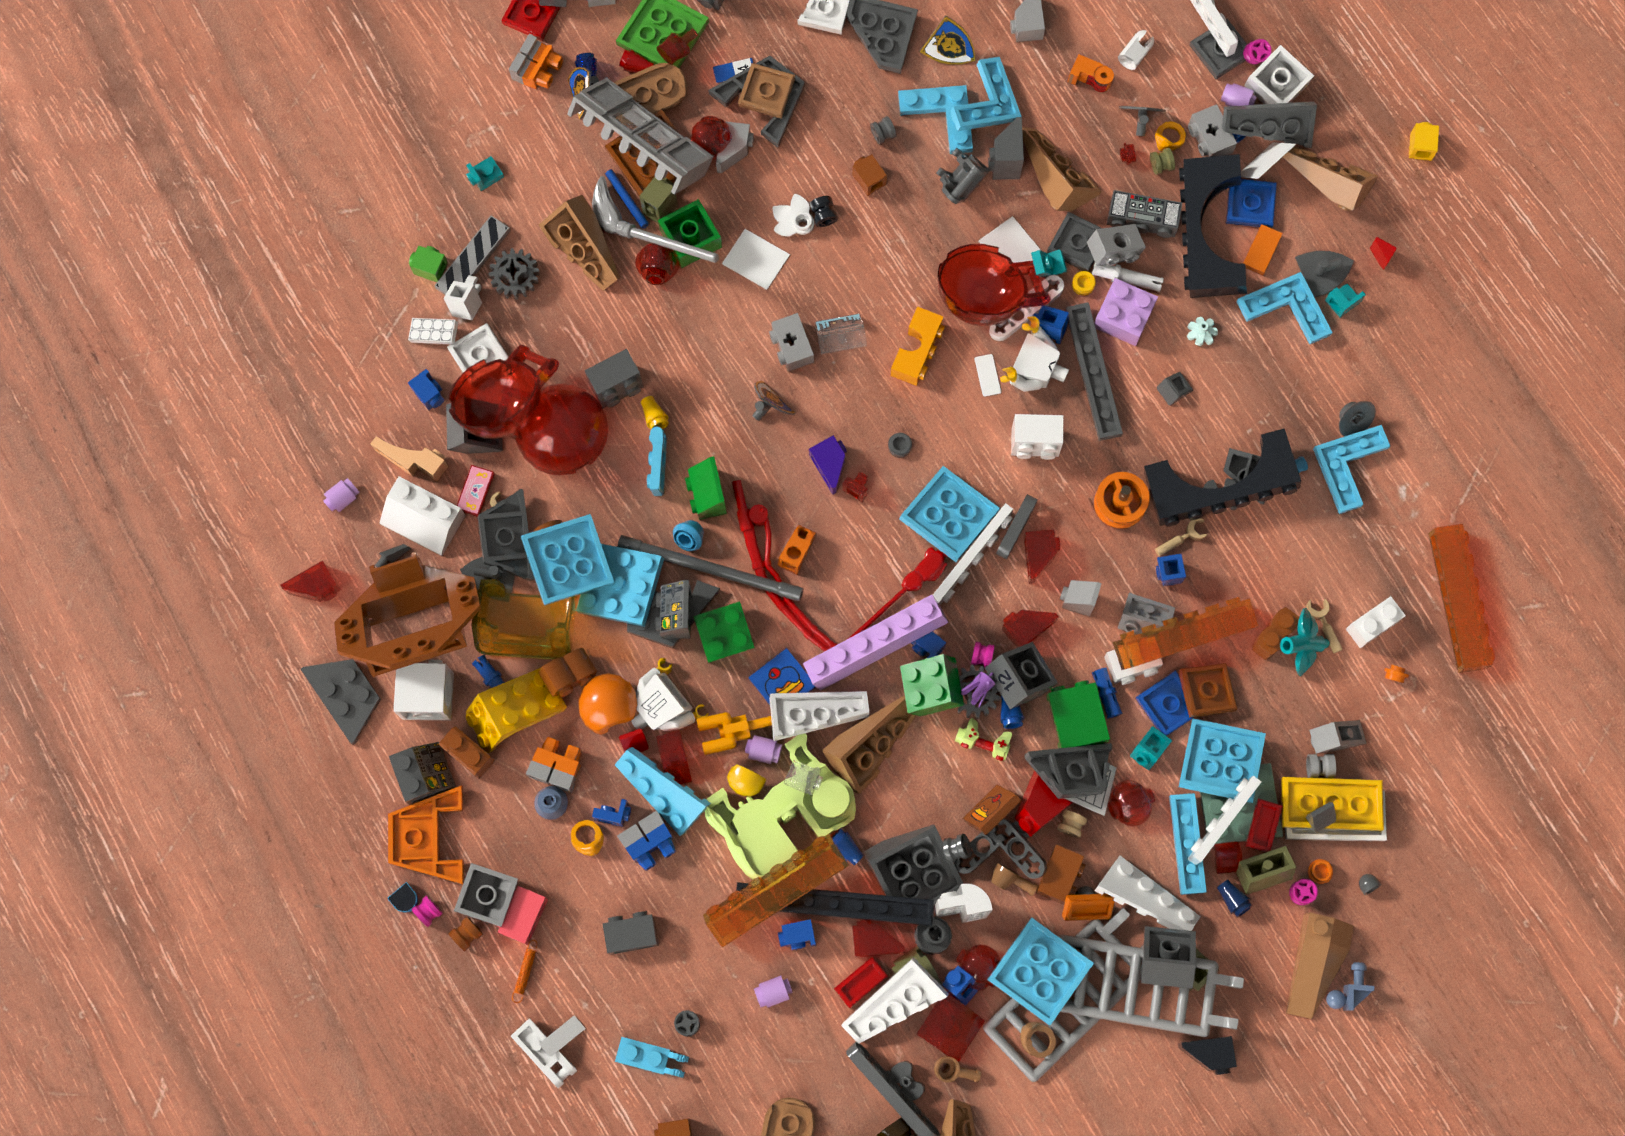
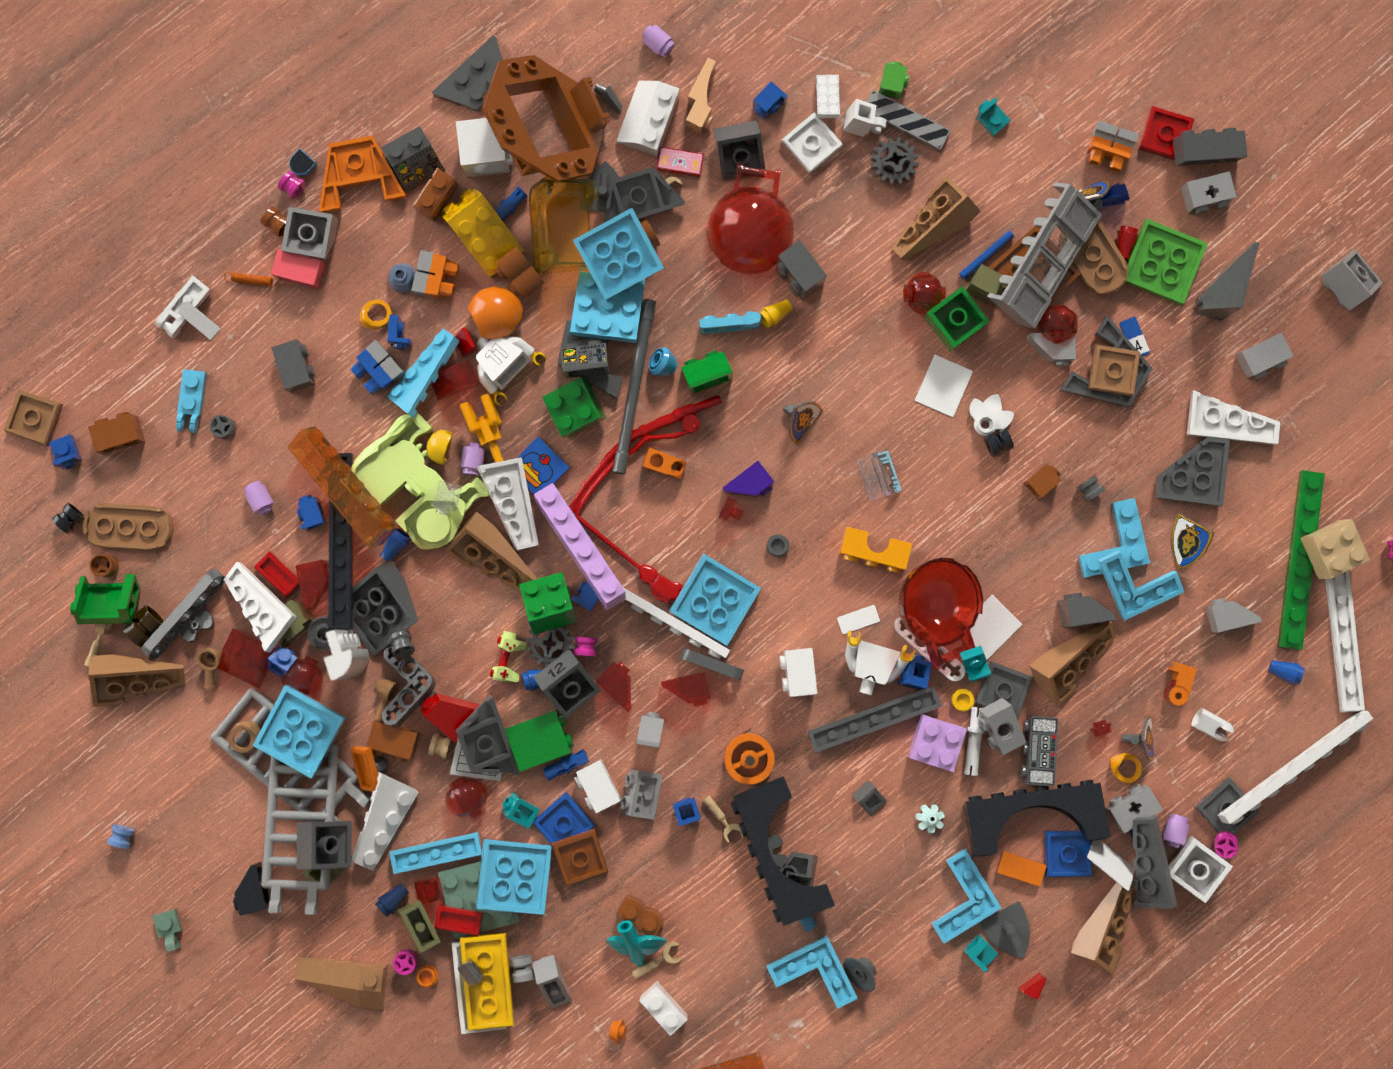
camera: 80 degrees right, 10 degrees up
(313, 584) = (572, 32): clear red slope -> none
(500, 395) = (763, 165): clear red windscreen -> none
(612, 222) = (959, 244): light grey piece -> none
(675, 46) = (1146, 277): clear red piece -> none
(791, 329) = (875, 430): light grey brick -> none
(965, 178) = (1050, 572): dark grey piece -> none
(984, 684) = (552, 651): medium lavender piece -> none
(991, 809) = (441, 671): dark orange tile -> none
(1162, 161) = (1097, 762): olive wheel -> none
(1184, 634) = (625, 831): clear orange brick -> none
(1217, 827) = (451, 883): white wing -> none
(1352, 994) = (321, 1014): sand blue piece -> none
(1368, 883) = (421, 1020): dark grey hinge -> none
(1424, 141) = (1156, 1017): yellow brick -> none

